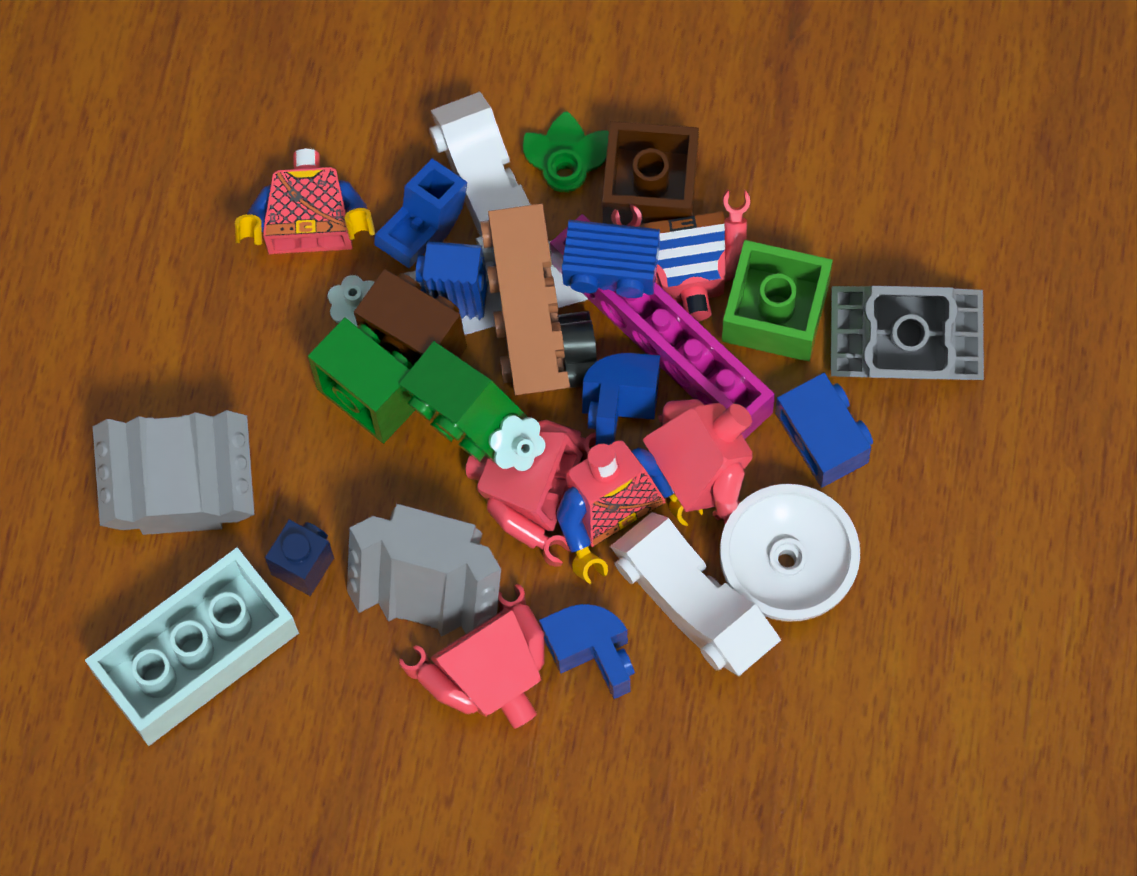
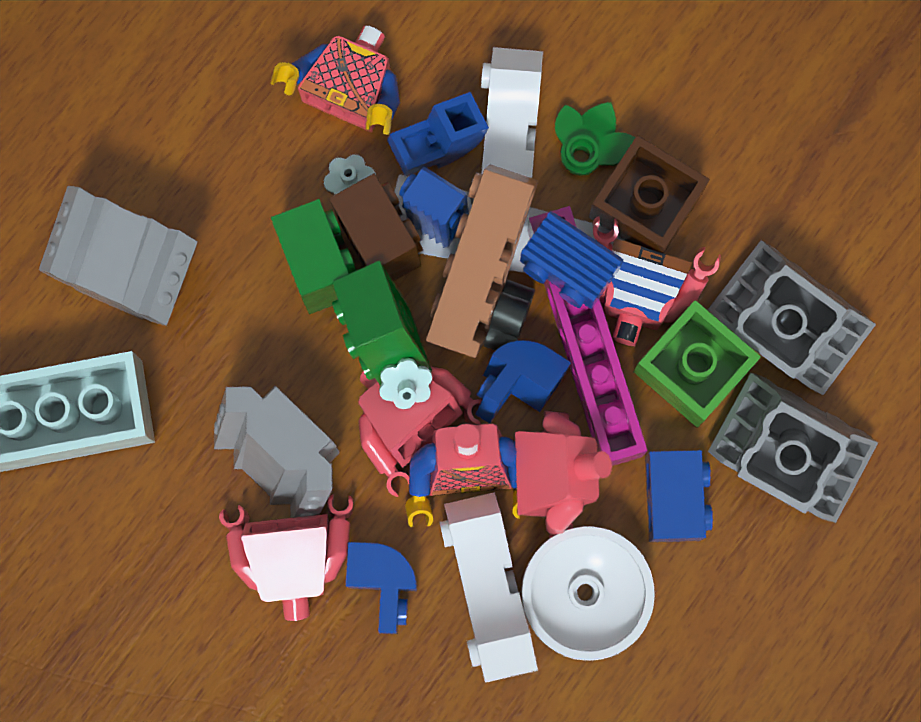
camera: 25 degrees right, 10 degrees up
(300, 556) = (186, 380): dark blue brick -> none
(843, 216) = (791, 318): none -> light grey slope

